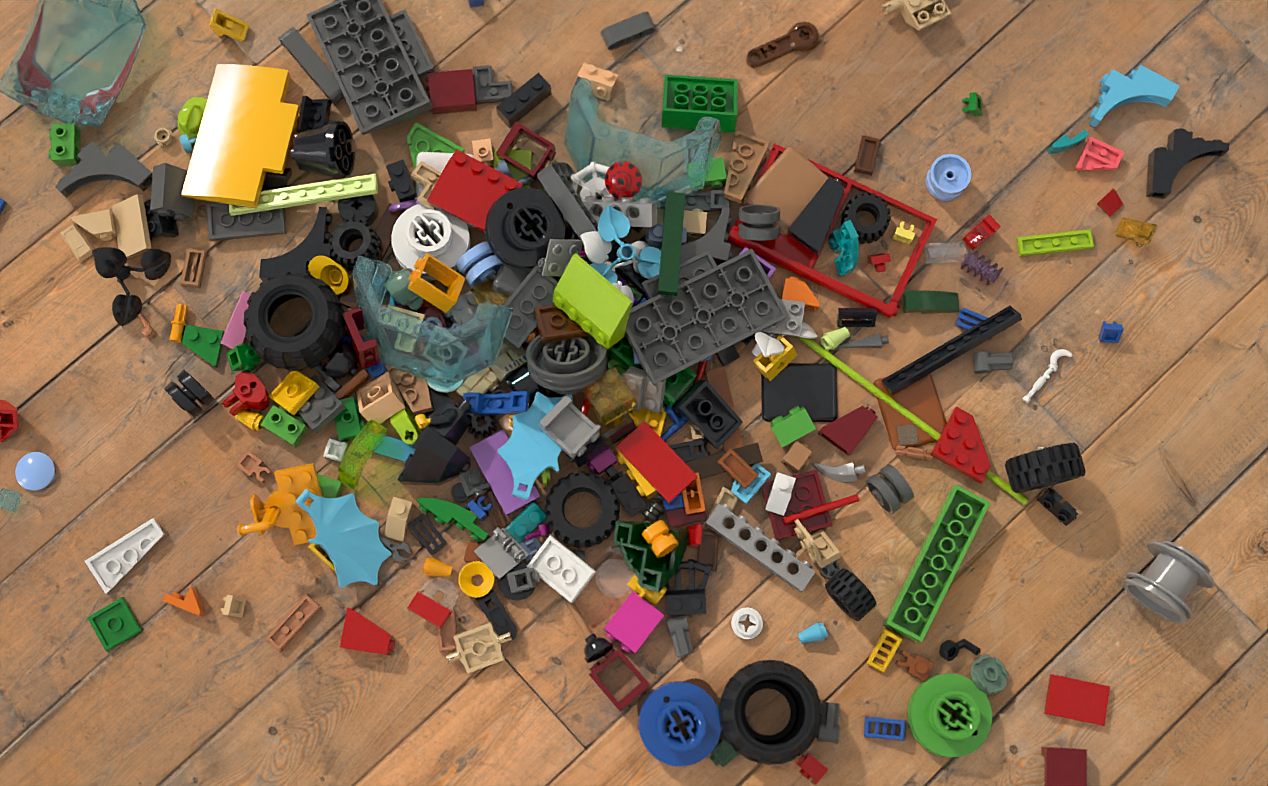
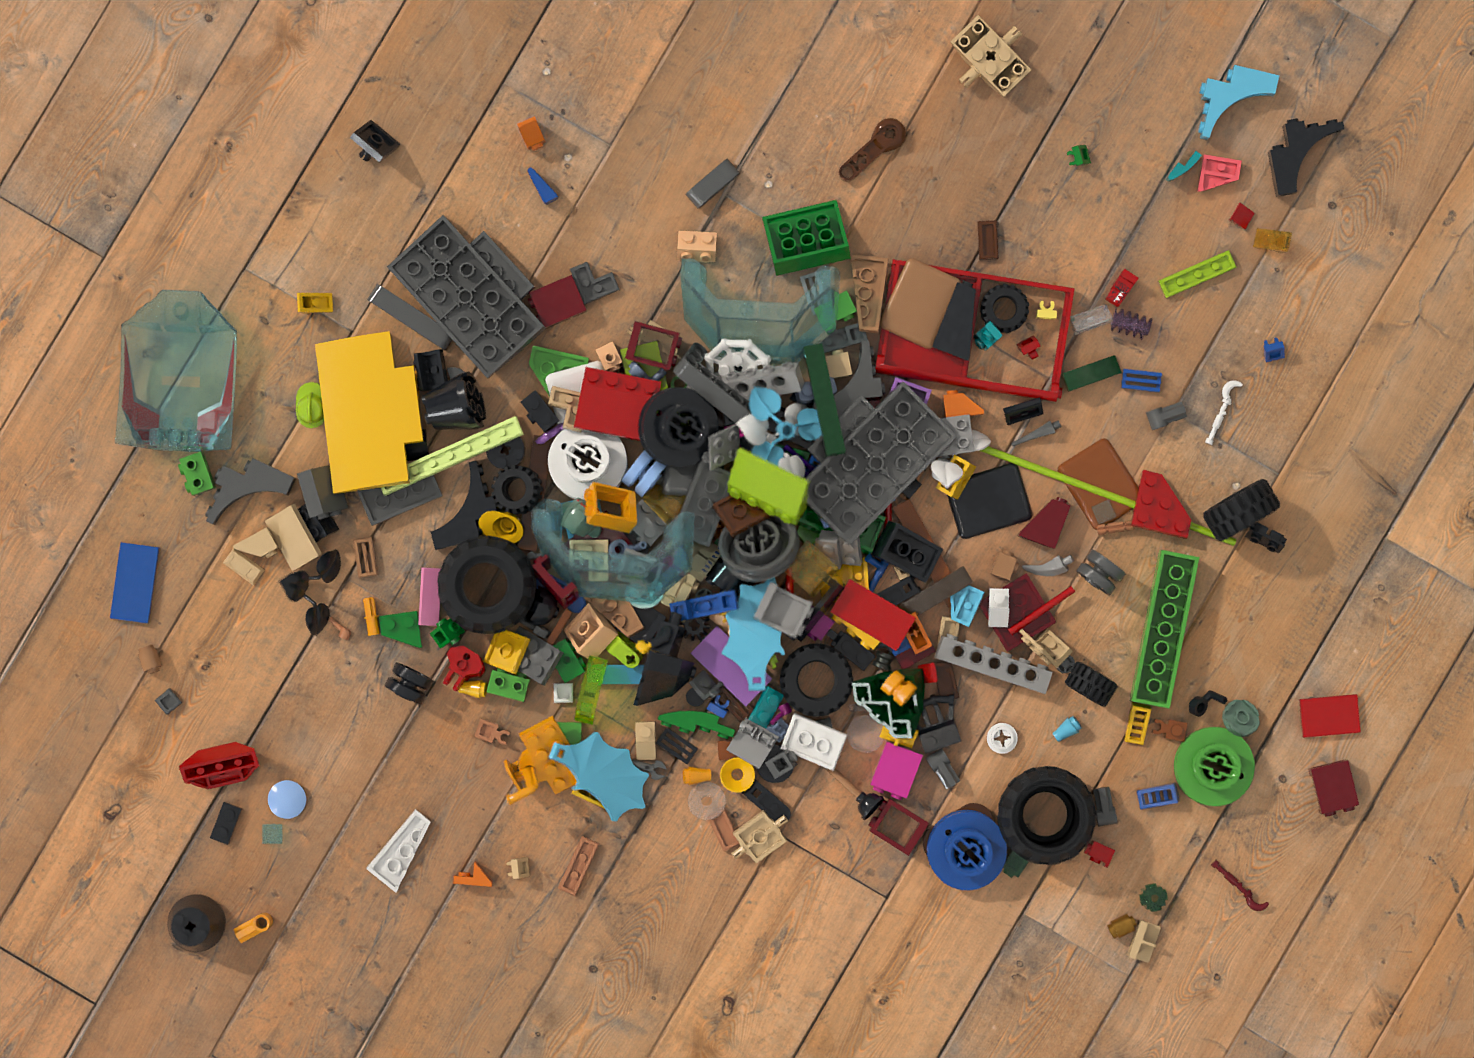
camera: 10 degrees left, 10 degrees up
(115, 624) = (413, 917): green tile -> none
(163, 132) = (284, 435): tan plate -> none
(187, 143) = (315, 435): medium azure tile -> none
(365, 635) = (650, 857): red slope -> none
(429, 610) = (703, 817): red tile -> none
(524, 100) = (632, 289): black brick -> none
(631, 176) = (758, 343): red dish -> none
(738, 468) = (951, 596): dark orange tile -> none
(759, 222) = (902, 349): dark grey wheel -> none
(792, 426) = (991, 538): bright green brick -> none
(834, 338) = (1007, 438): yellowish green cone -> none
(848, 258) = (998, 357): teal tile -> none
(948, 177) = (1066, 250): light blue wheel -> none
(951, 350) = (1123, 417): black plate -> none
(1169, 581) = (1384, 582): light grey wheel -> none

